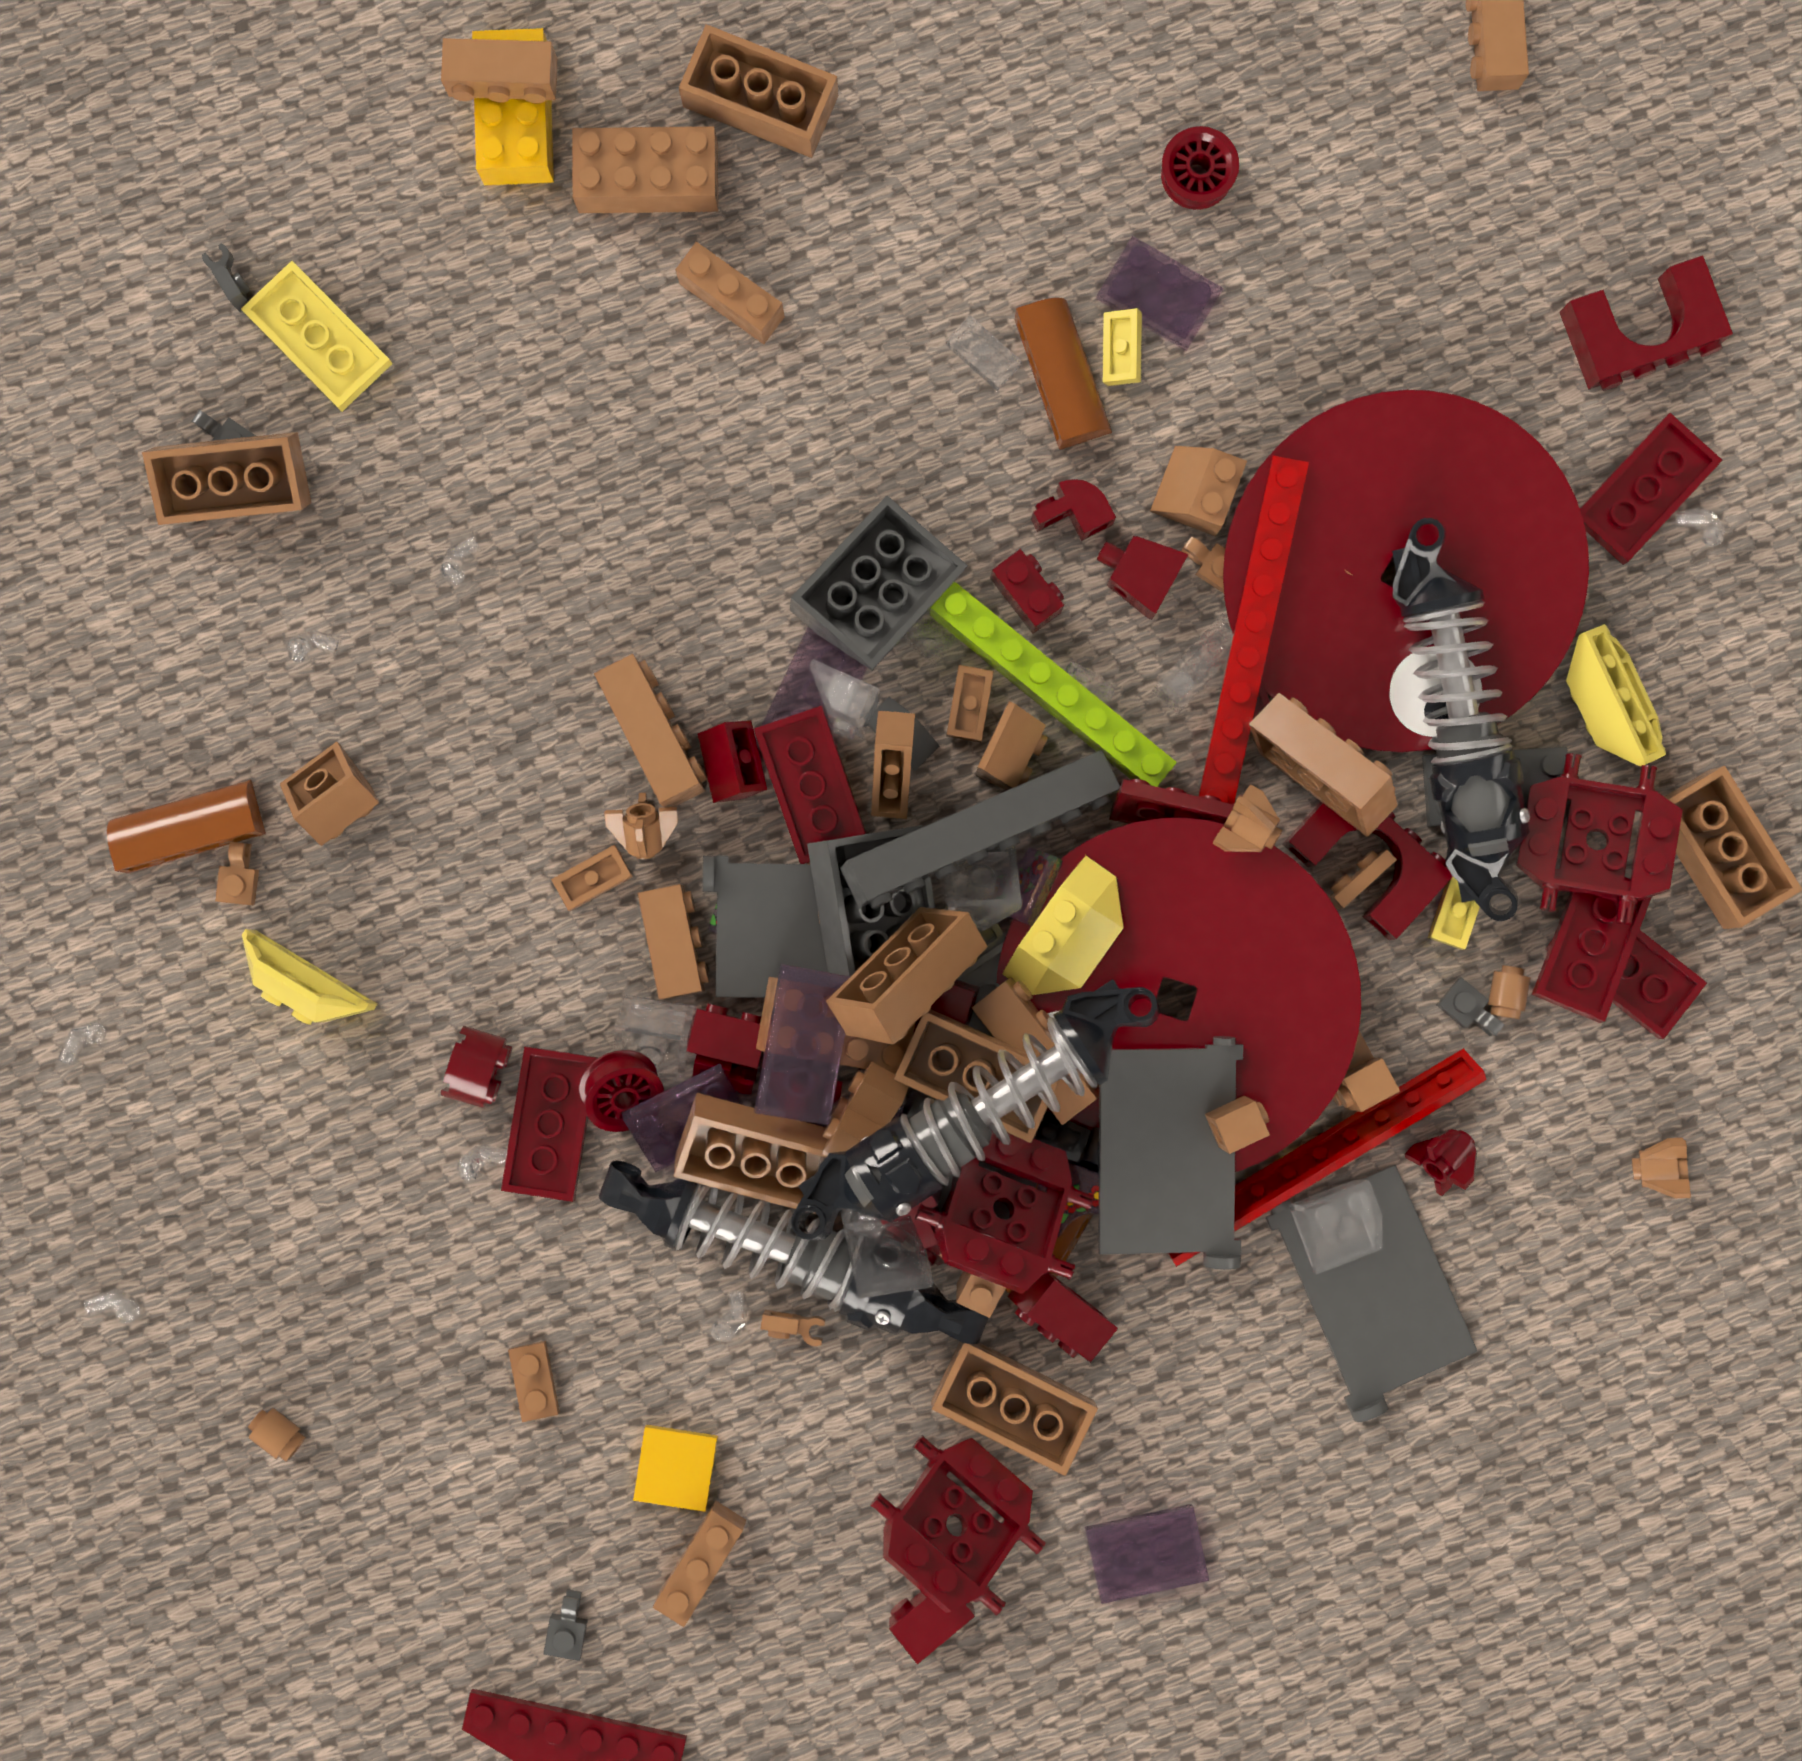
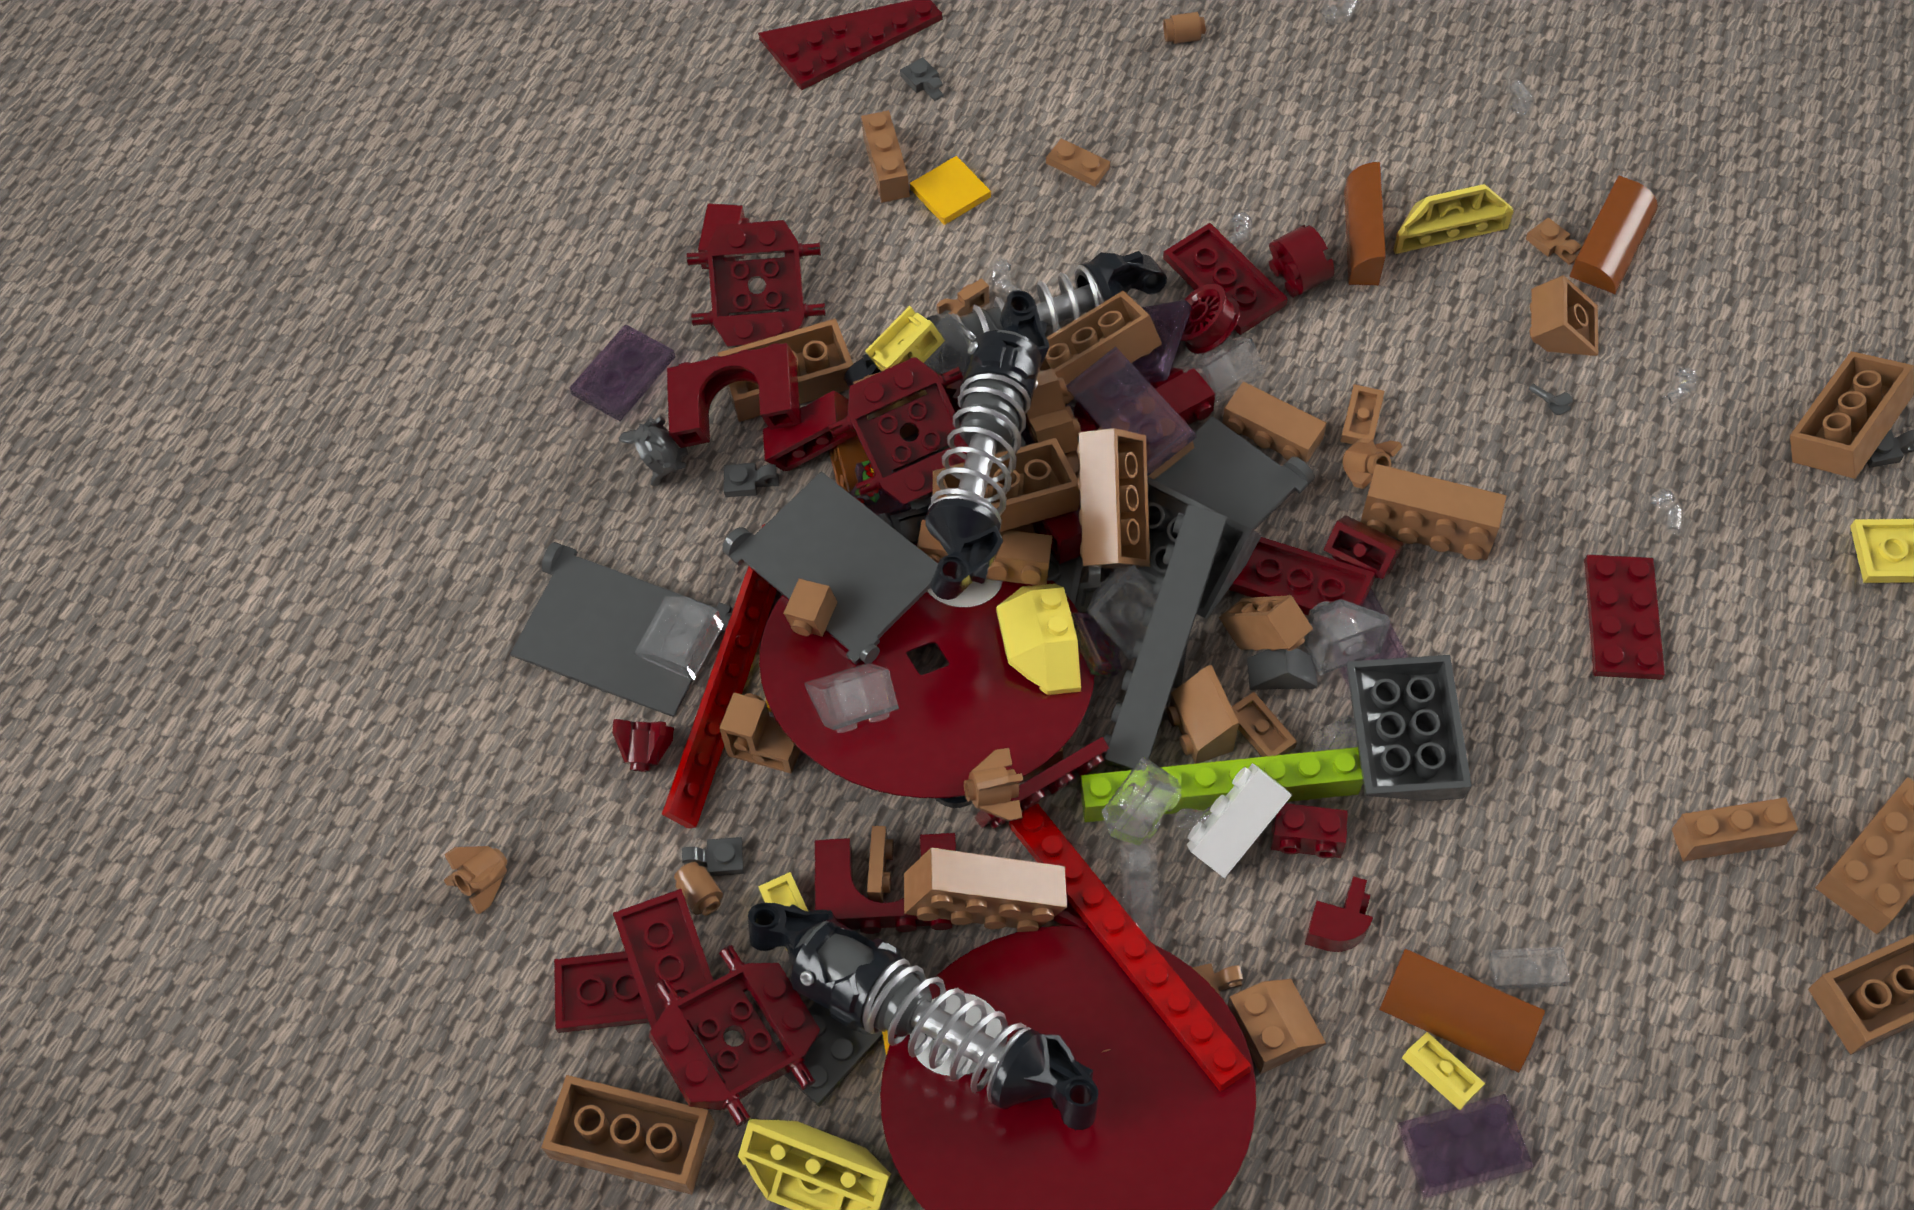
camera: 140 degrees right, 25 degrees down
(378, 1049) = (1364, 225): none -> dark orange brick
(424, 730) = (1557, 404): none -> dark grey hand
(599, 518) = (1624, 617): none -> dark red plate
(929, 1294) = (905, 338): none -> light yellow hinge
(1078, 640) = (1237, 819): none -> white brick
(1124, 1453) = (695, 385): none -> dark red arch
(1142, 572) = (1247, 922): dark red torso -> none
(1142, 1333) = (745, 478): none -> dark grey plate
(1146, 717) = (1141, 802): none -> clear slope
(1202, 1429) = (656, 448): none -> dark grey hair
(1282, 1011) = (853, 696): none -> clear slope

